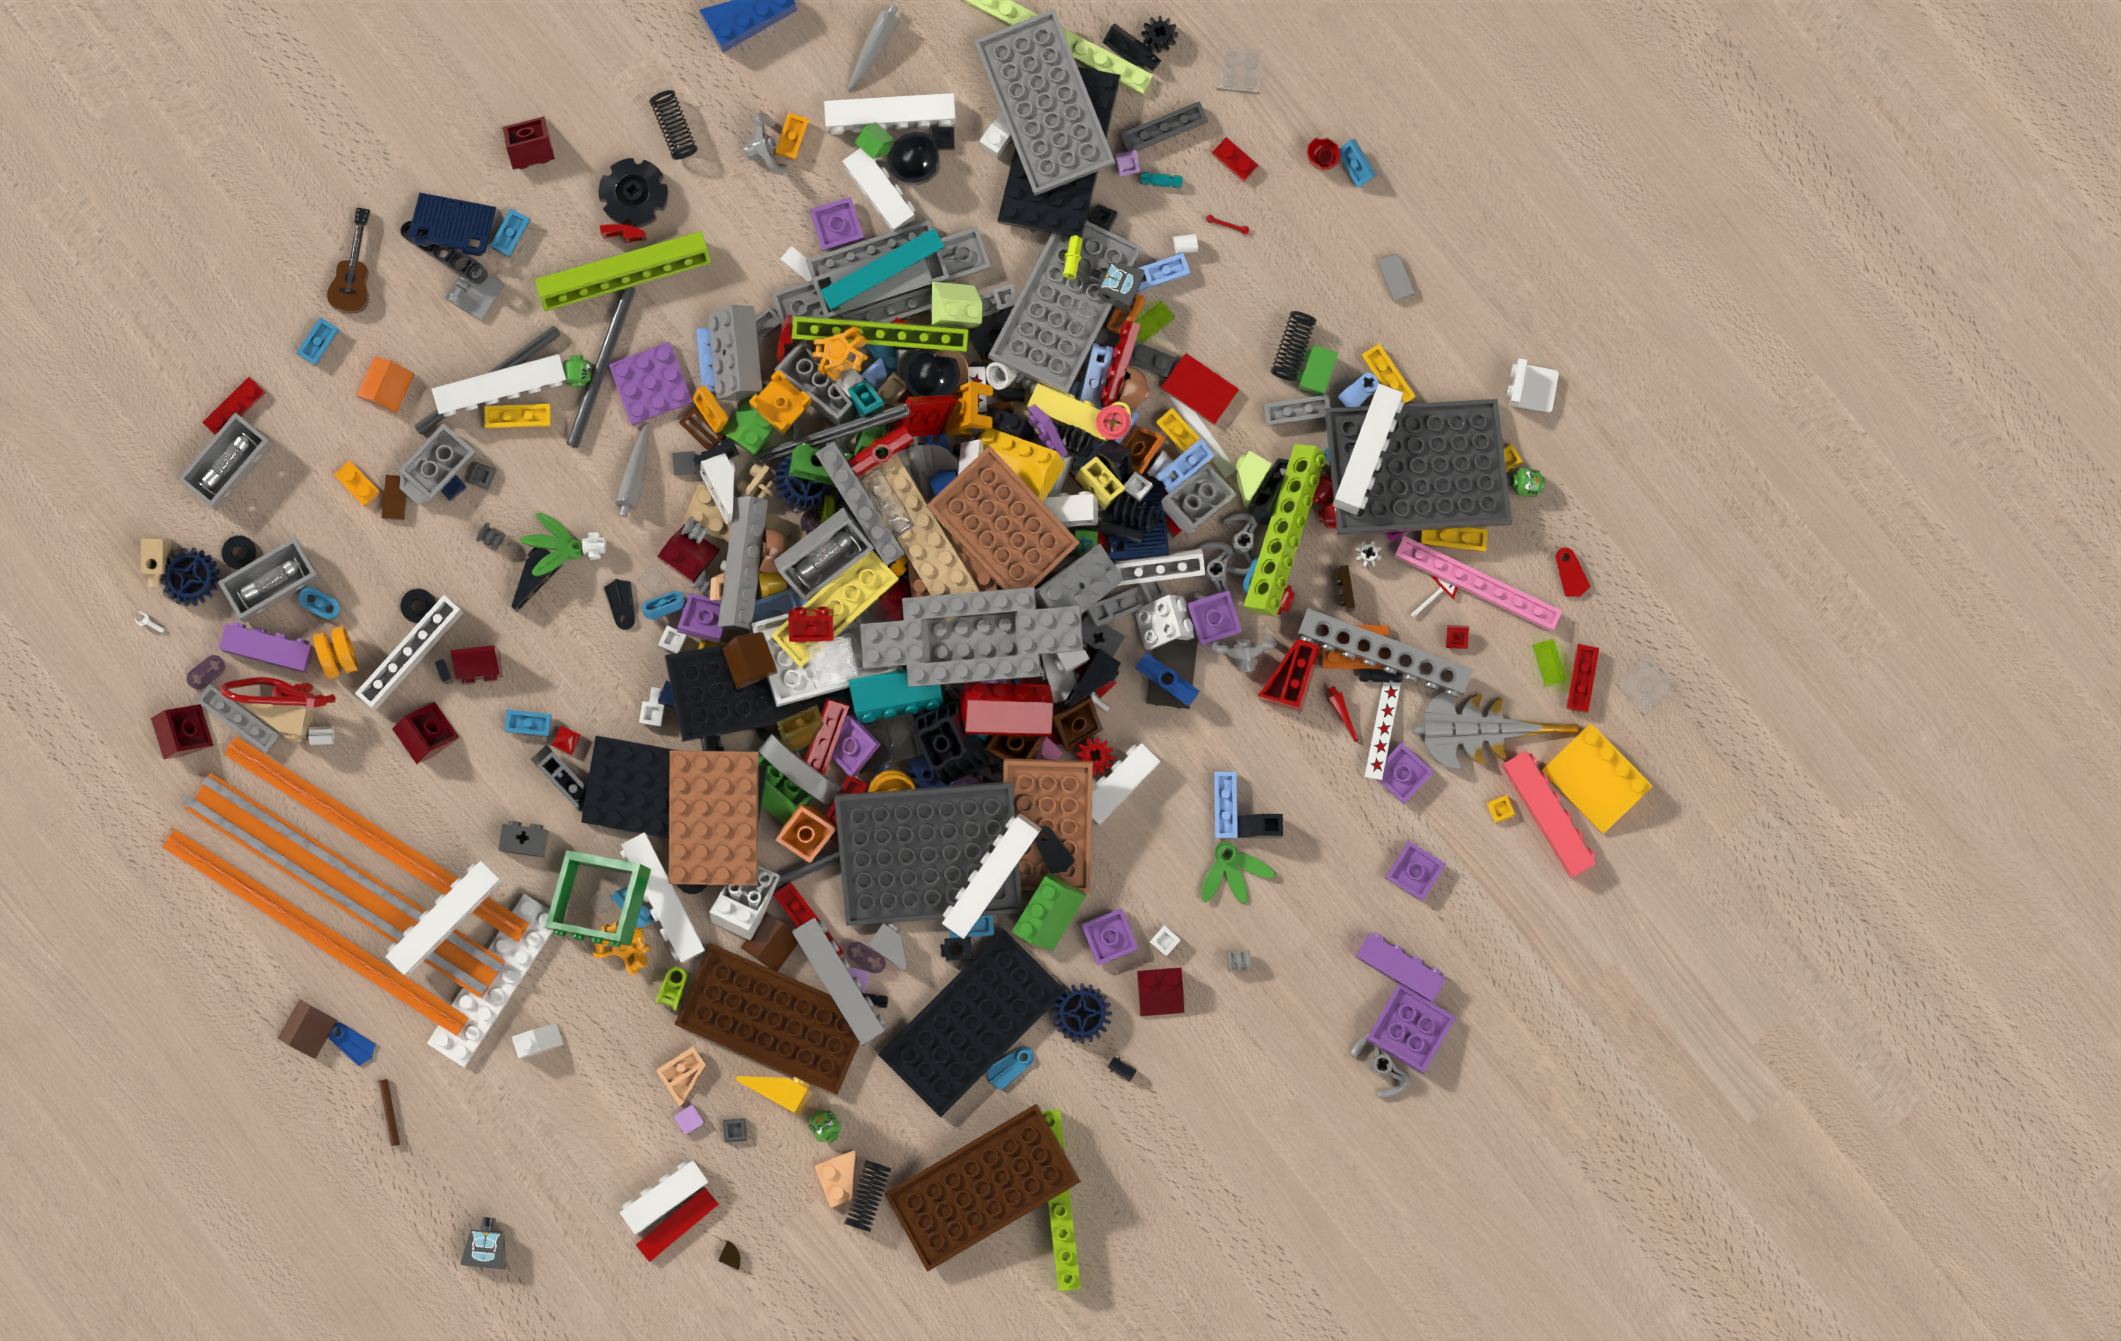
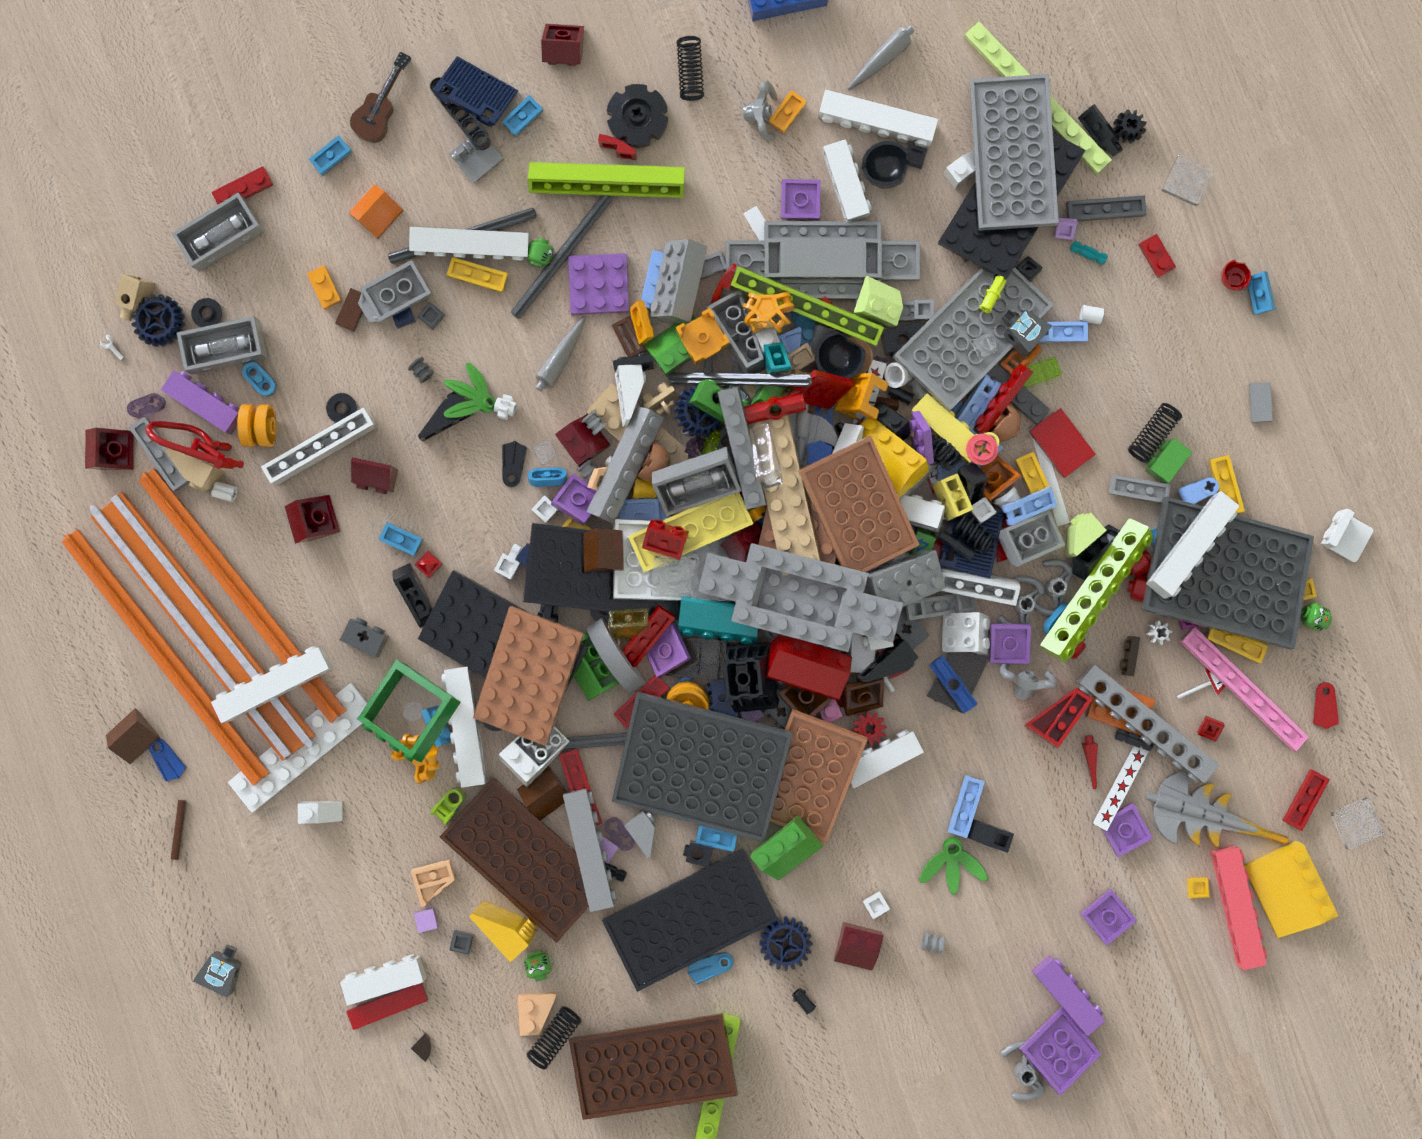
camera: 20 degrees right, 5 degrees up
(444, 672) = (344, 472): black tile -> none
(684, 463) = (604, 361): dark grey tile -> none
(806, 832) = (603, 712): orange slope -> none
(874, 141) = (857, 138): bright green brick -> none
(882, 269) = (827, 250): teal tile -> none
(991, 876) = (748, 805): white brick -> none
(1054, 852) = (807, 800): black piece -> none
(1109, 937) = (830, 885): medium lavender plate -> none
(1244, 230) = (1144, 319): red hinge -> none
(1549, 662) = (1281, 776): clear neon green tile -> none

